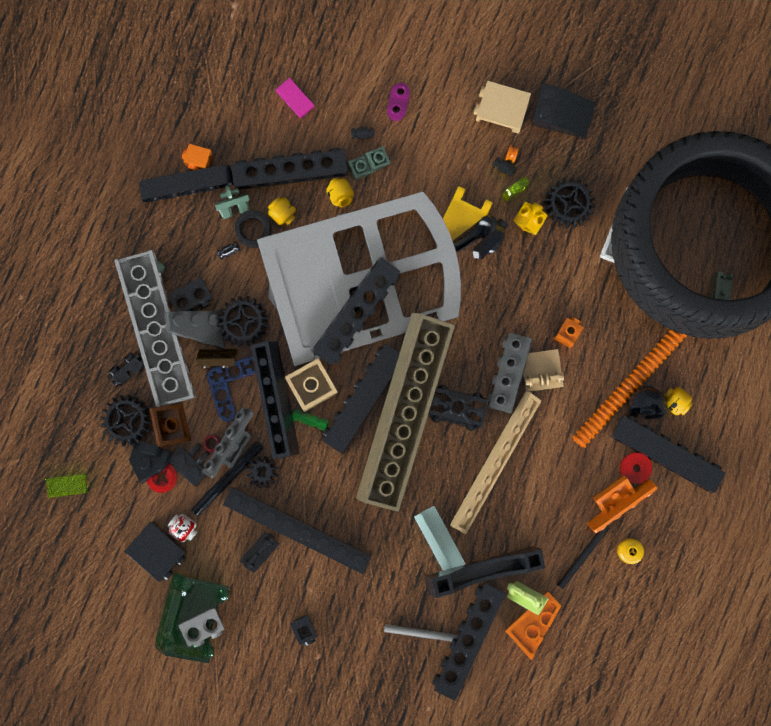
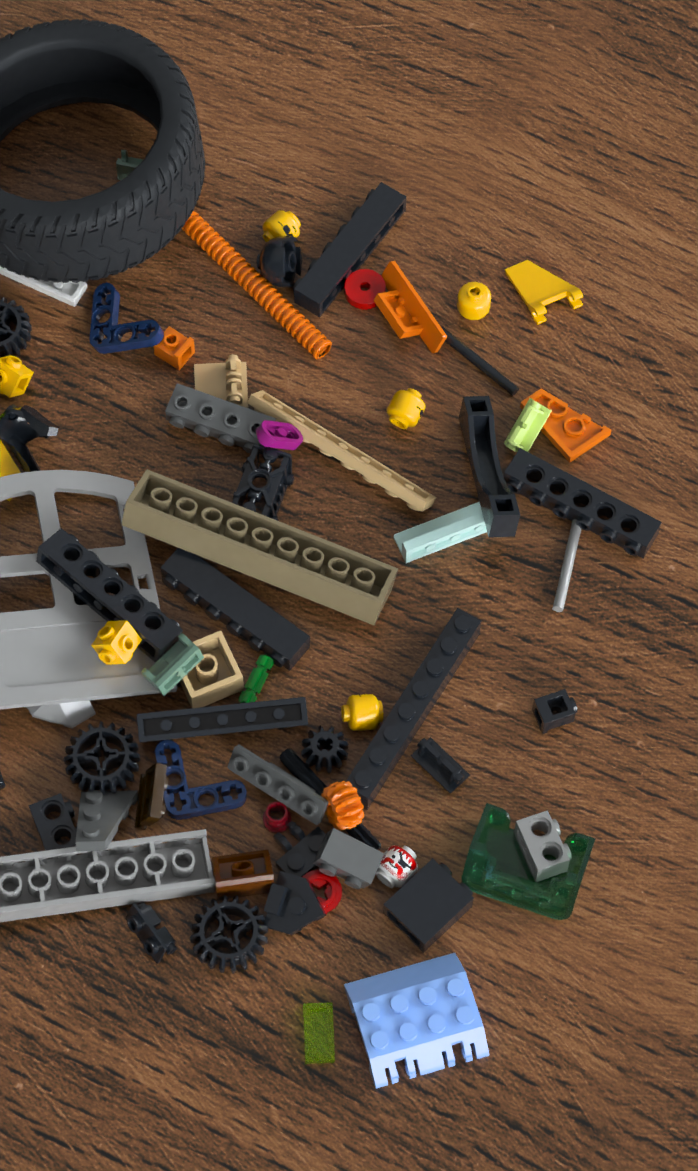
camera: 85 degrees left, 20 degrees down
(80, 548) = (417, 1017): none -> light blue slope
(181, 494) = (348, 859): none -> dark grey brick
(214, 488) = (343, 806): none -> orange gear
(291, 495) = (362, 712): none -> yellow head
(305, 360) = (173, 665): none -> sand green hinge
(315, 320) = (116, 642): none -> yellow brick
(496, 417) = (279, 435): none -> magenta plate
(534, 507) = (405, 408): none -> yellow head
(575, 288) = (115, 331): none -> dark blue beam
(651, 600) = (541, 288): none -> yellow flag

